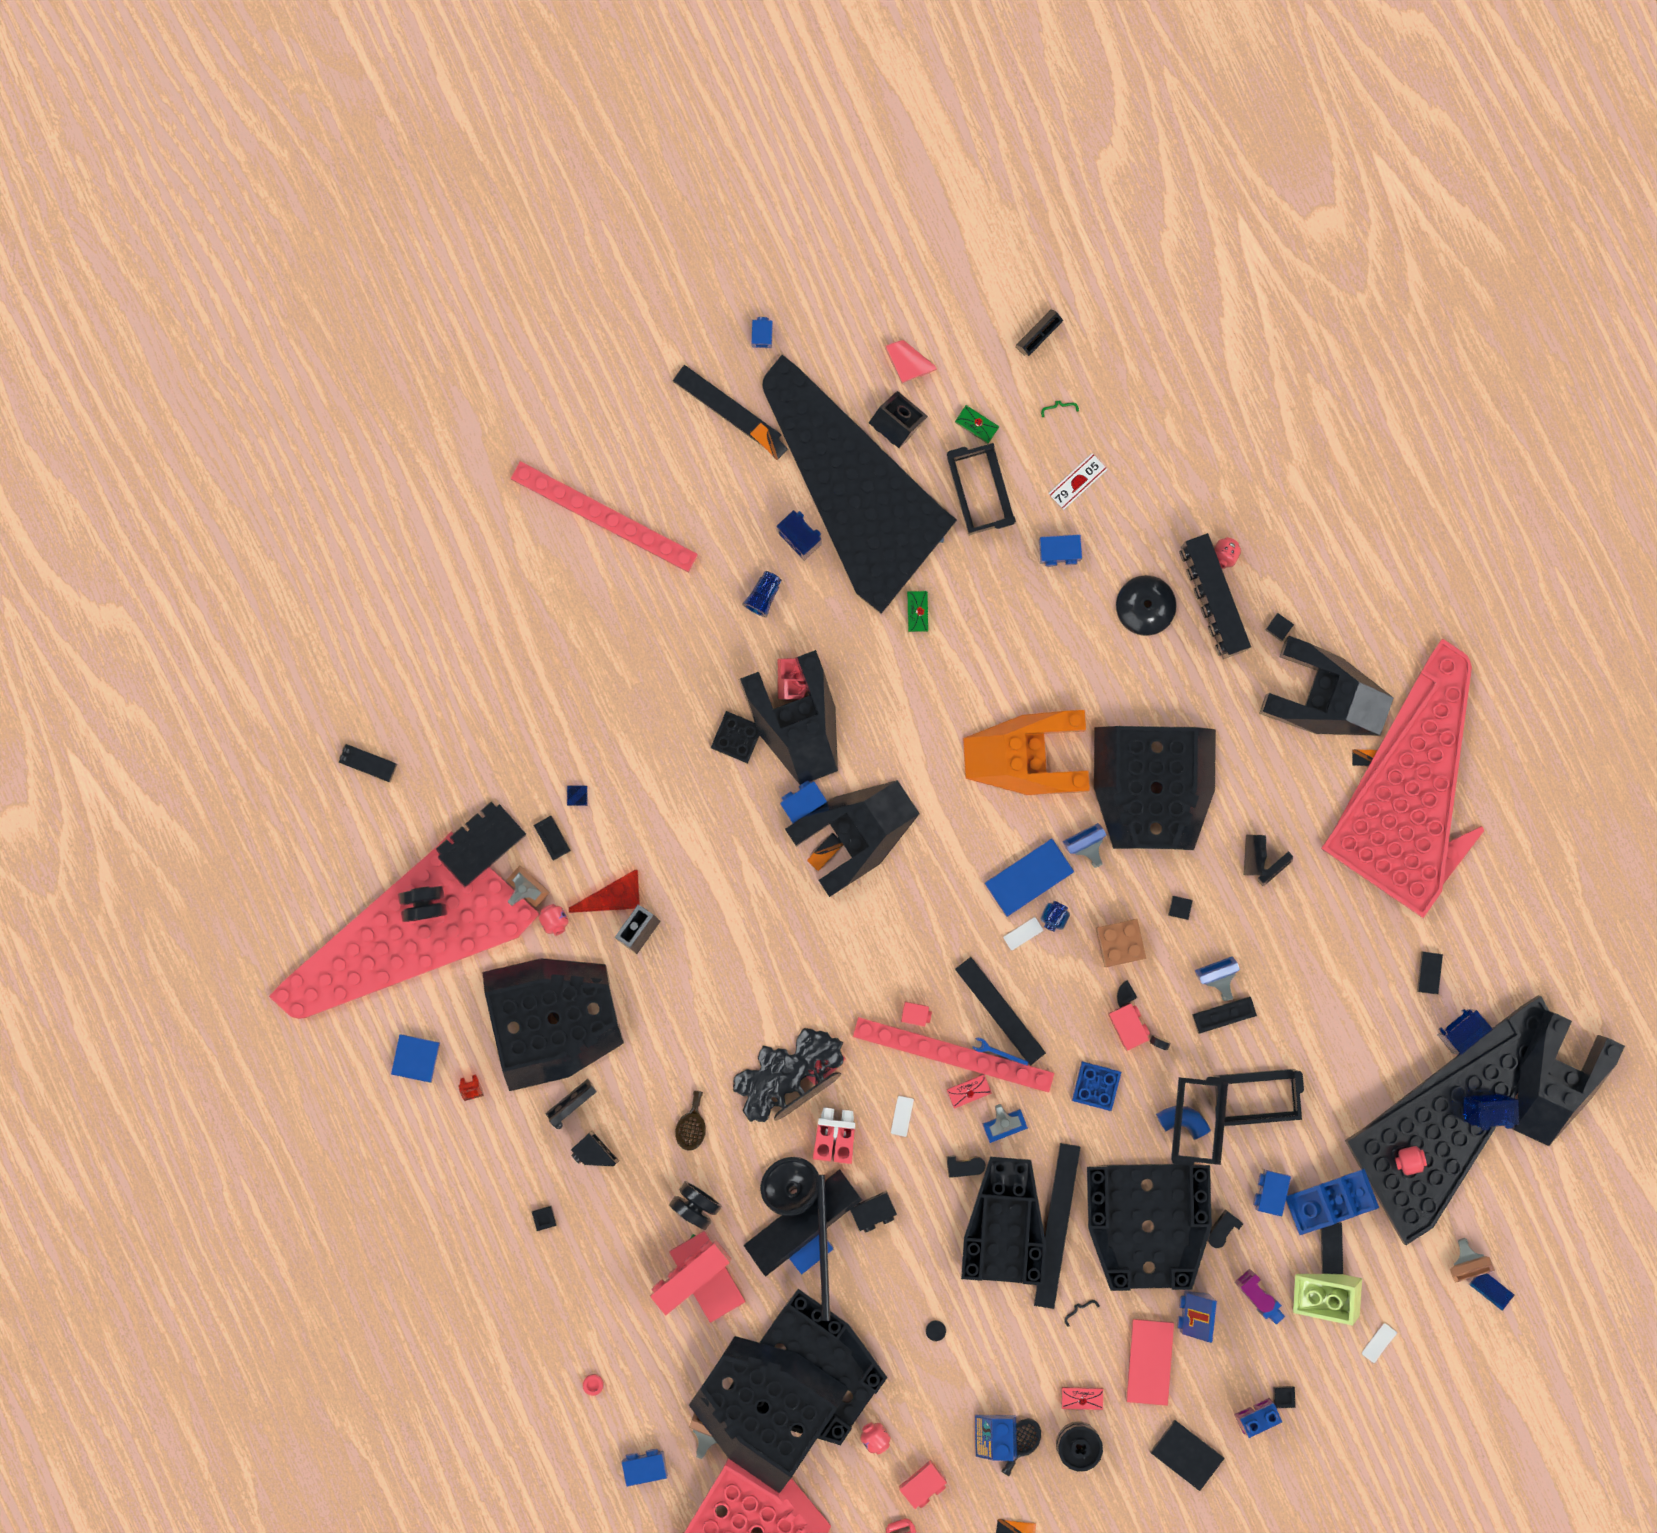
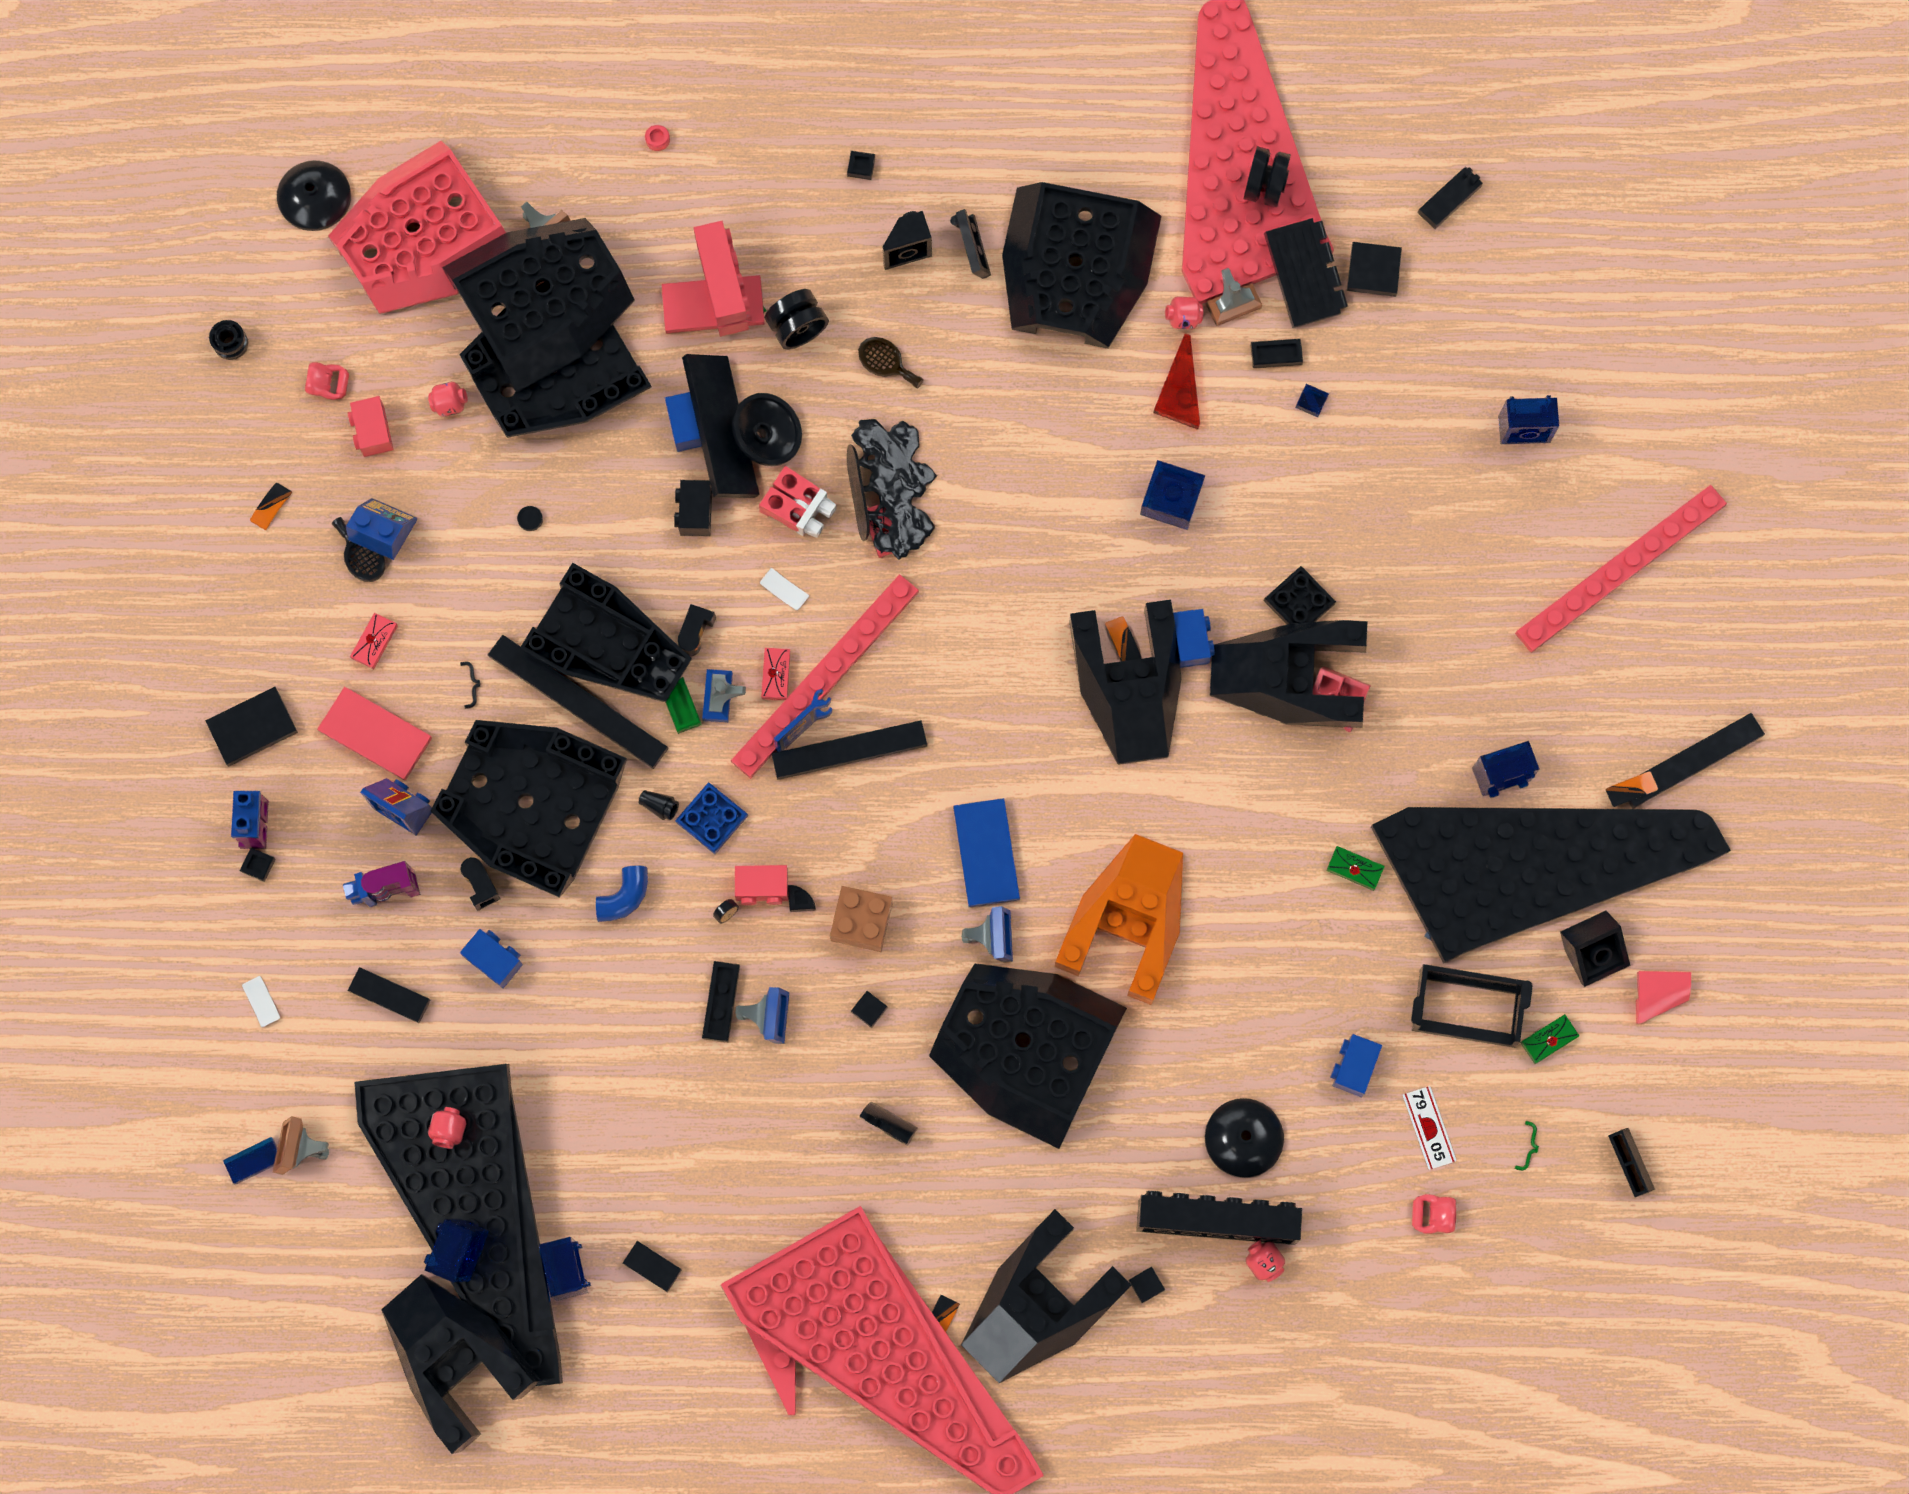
camera: 115 degrees right, 10 degrees down
(415, 1058) = (1099, 107): blue tile -> none
(453, 794) = (1374, 269): none -> black tile
(471, 1089) = (1038, 147): clear red tile -> none
(524, 629) = (1528, 420): none -> clear blue container
(637, 929) = (1131, 394): black brick -> none
(644, 1467) = (541, 149): blue brick -> none
(702, 864) = (1172, 495): none -> clear blue container
(762, 333) = (1766, 838): blue brick -> none
(763, 594) = (1453, 701): clear blue plant -> none
(823, 1247) = (683, 429): black piece -> none
(916, 1014) = (891, 653): coral brick -> none
(1023, 933) = (924, 816): white sticker -> none
(1026, 1146) = (682, 708): none -> green tile
(1055, 916) = (927, 859): clear blue head -> none
(1085, 1457) = (323, 610): black wheel -> none
(1105, 1128) = (659, 804): none -> black cone
(1135, 447) = (1441, 1214): none -> coral piece
(1222, 1084) = (644, 948): black piece -> none
(1276, 868) = (861, 1140): black tile -> none
(1297, 1087) = (613, 939): black piece -> none
(1328, 1297) = (341, 964): yellowish green slope -> none
(1332, 1202) = (446, 1018): blue slope -> none

